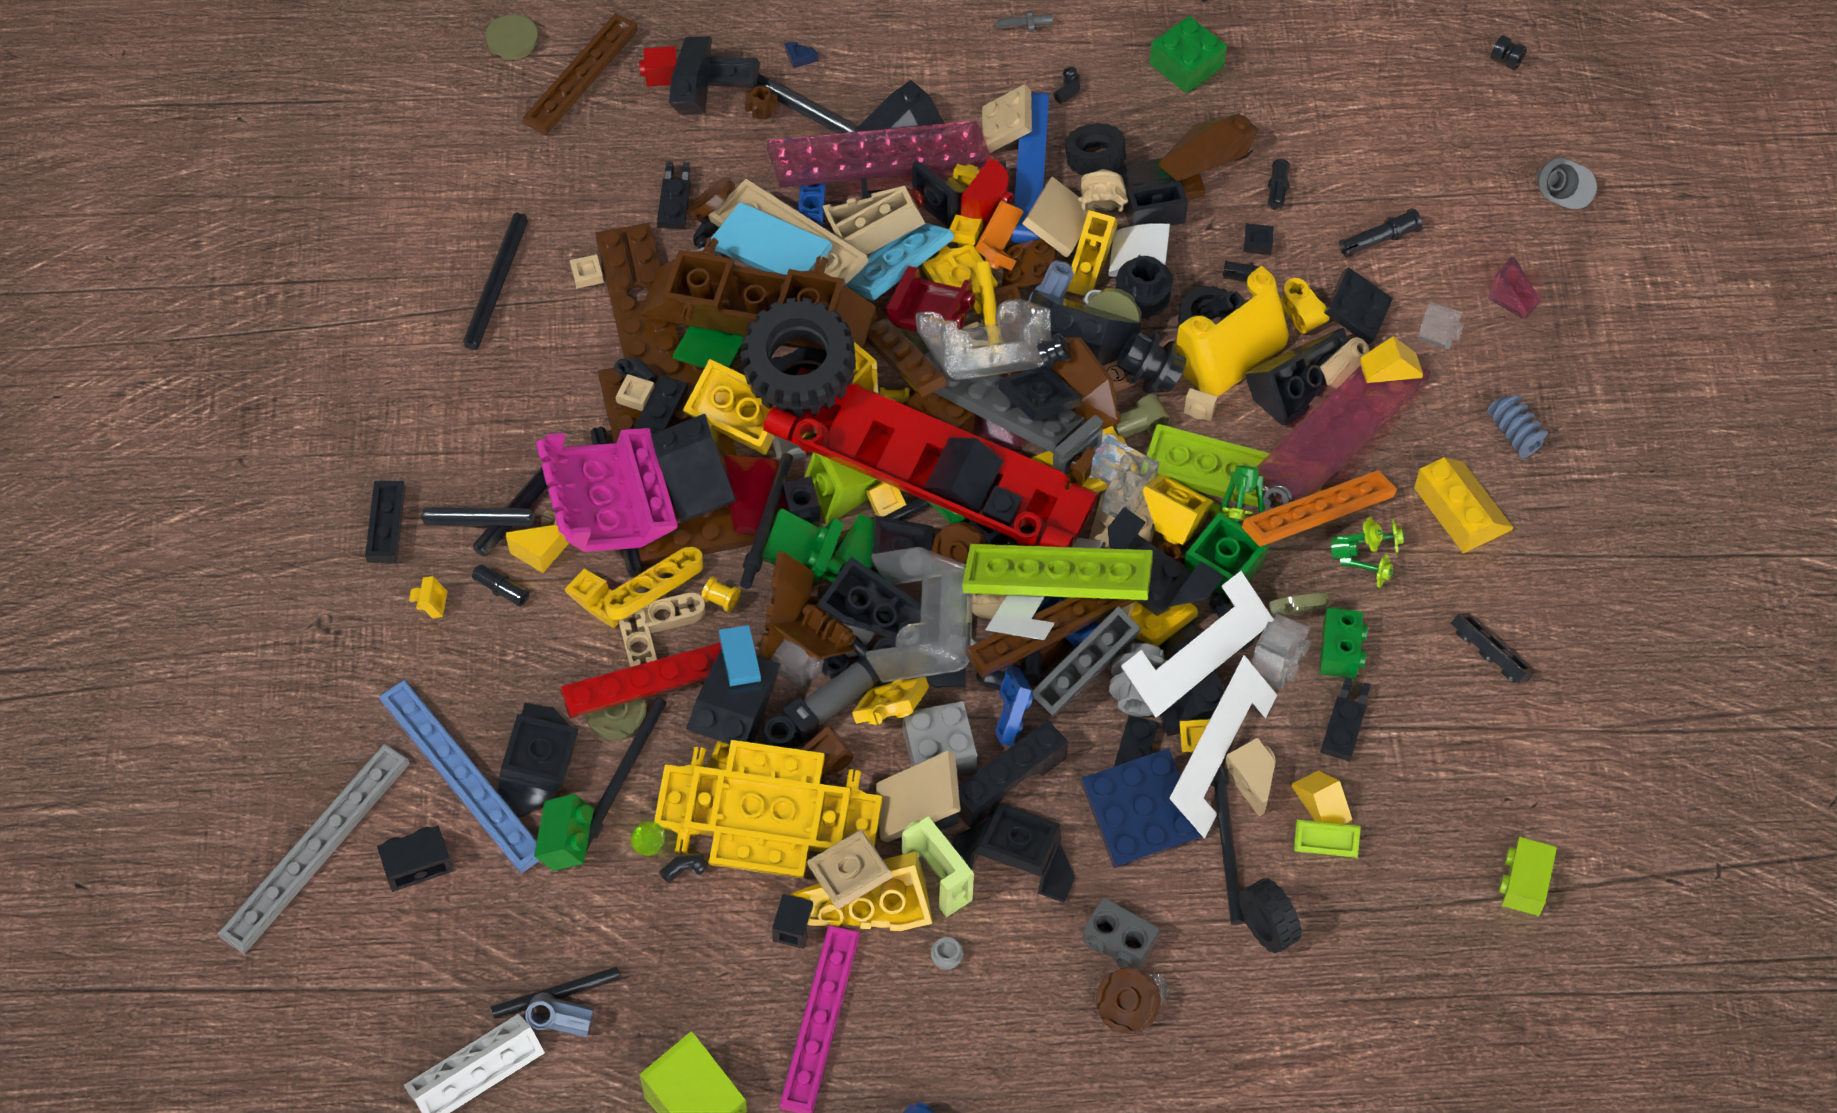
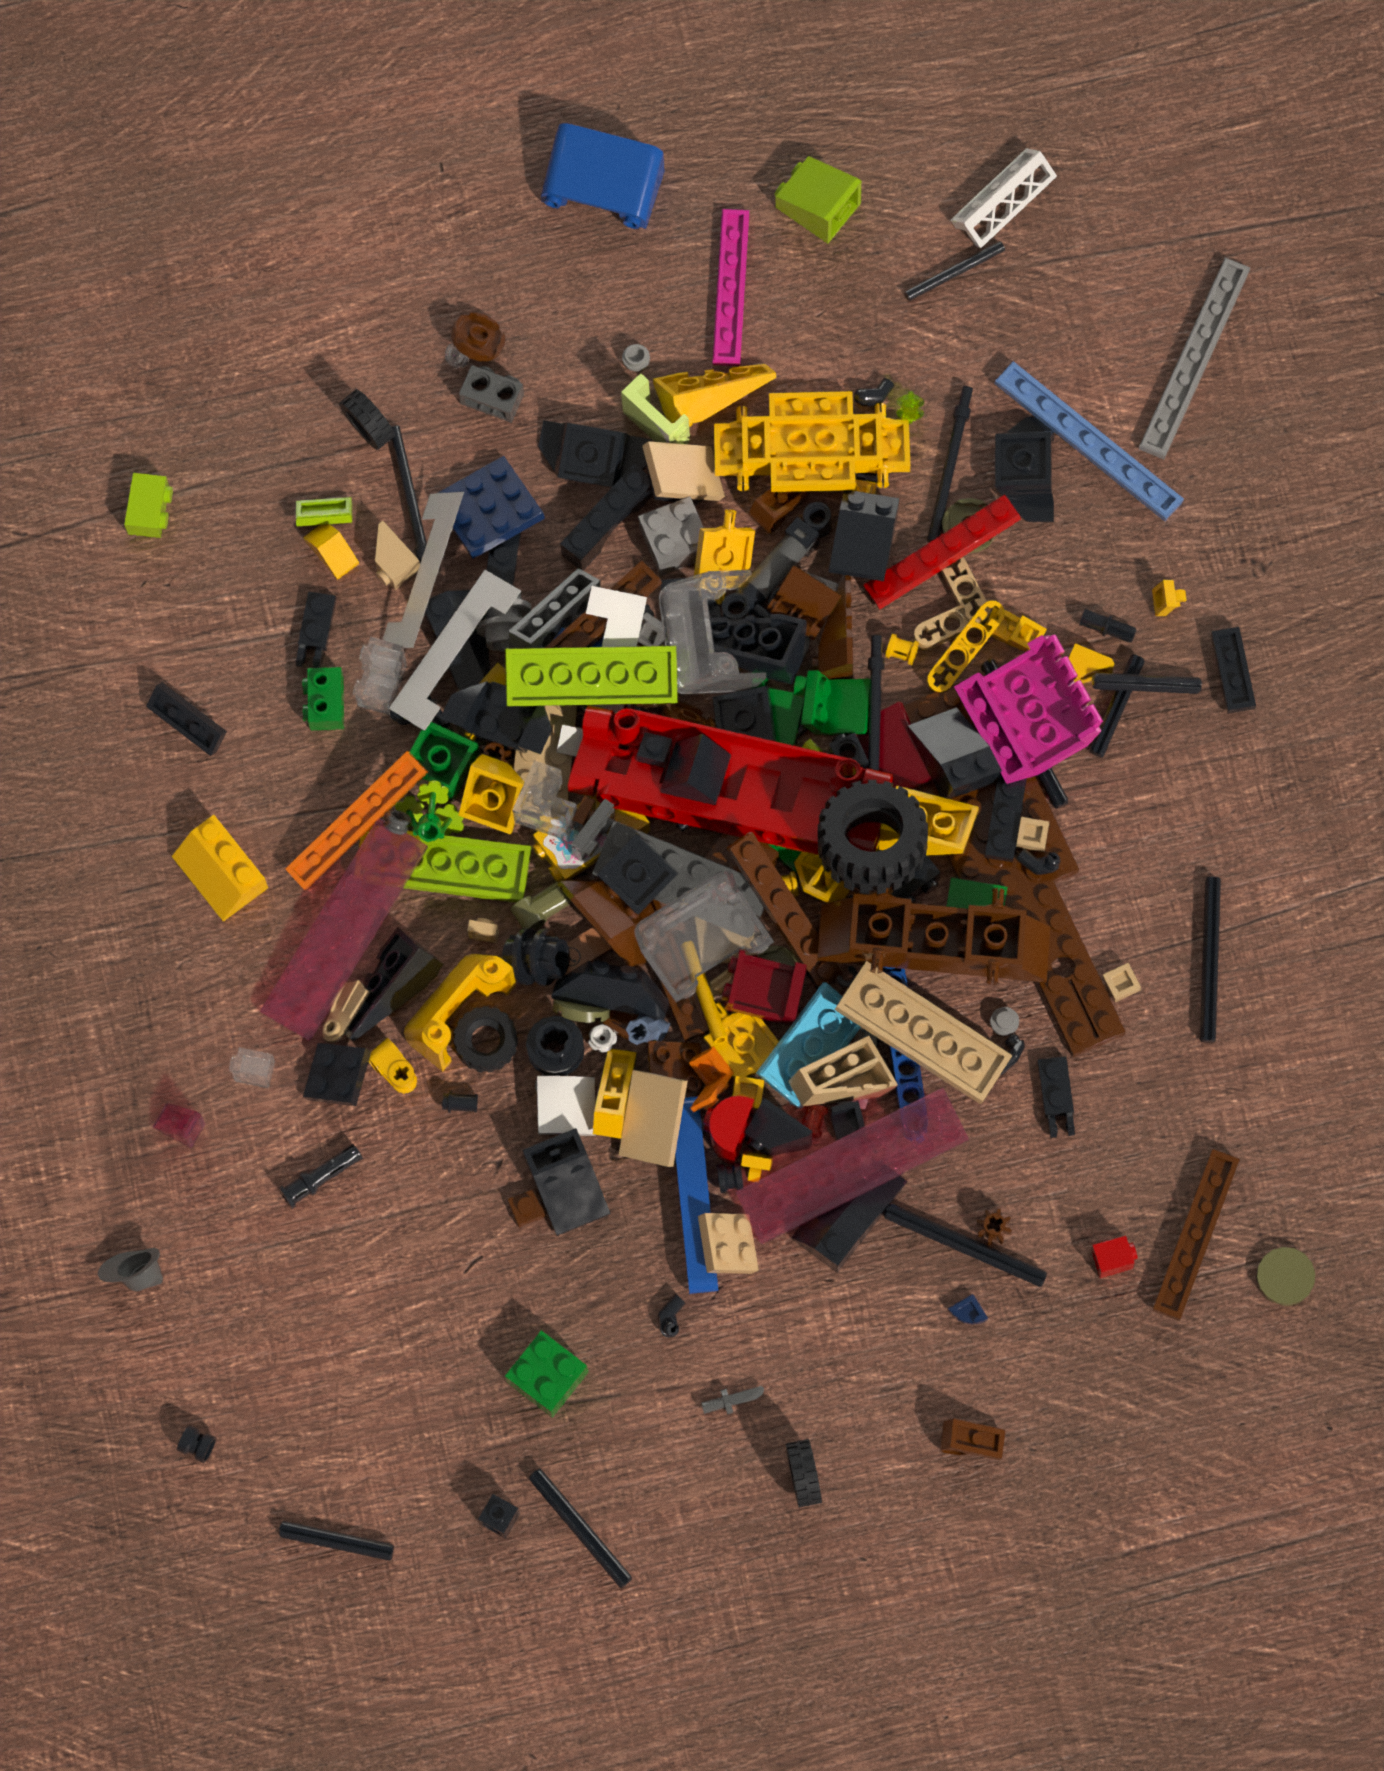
camera: 175 degrees right, 15 degrees up
(414, 858) = (1104, 356): black brick -> none
(563, 1015) = (953, 244): sand blue piece -> none
(564, 832) = (982, 393): green brick -> none
(691, 76) = (1074, 1236): black slope -> none
(711, 199) = (1015, 1081): reddish brown tile -> none
(733, 71) = (1047, 1255): black plate -> none
(739, 655) = (866, 563): dark azure tile -> none
(768, 242) = (937, 1011): medium azure tile -> none
(792, 921) = (770, 354): black panel -> none
(849, 869) = (729, 391): tan tile -> none
(1016, 698) = (613, 565): blue plate -> none
(1054, 350) = (630, 917): black wheel -> none
(1095, 136) = (608, 1232): black tyre -> none
(1103, 191) = (610, 1148): tan hair -> none
(1191, 733) = (449, 578): yellow tile -> none
(1209, 146) = (509, 1248): reddish brown wedge -> none
(1222, 305) = (473, 1015): black axle -> none
(1258, 239) = (446, 1145): black plate -> none
(1278, 183) = (431, 1221): black axle -> none
(1299, 604) = (367, 720): olive tile -> none
(1347, 546) = (327, 797): plant -> none
(1390, 362) = (298, 997): yellow slope -> none
(1517, 425) = (169, 963): sand blue piece -> none

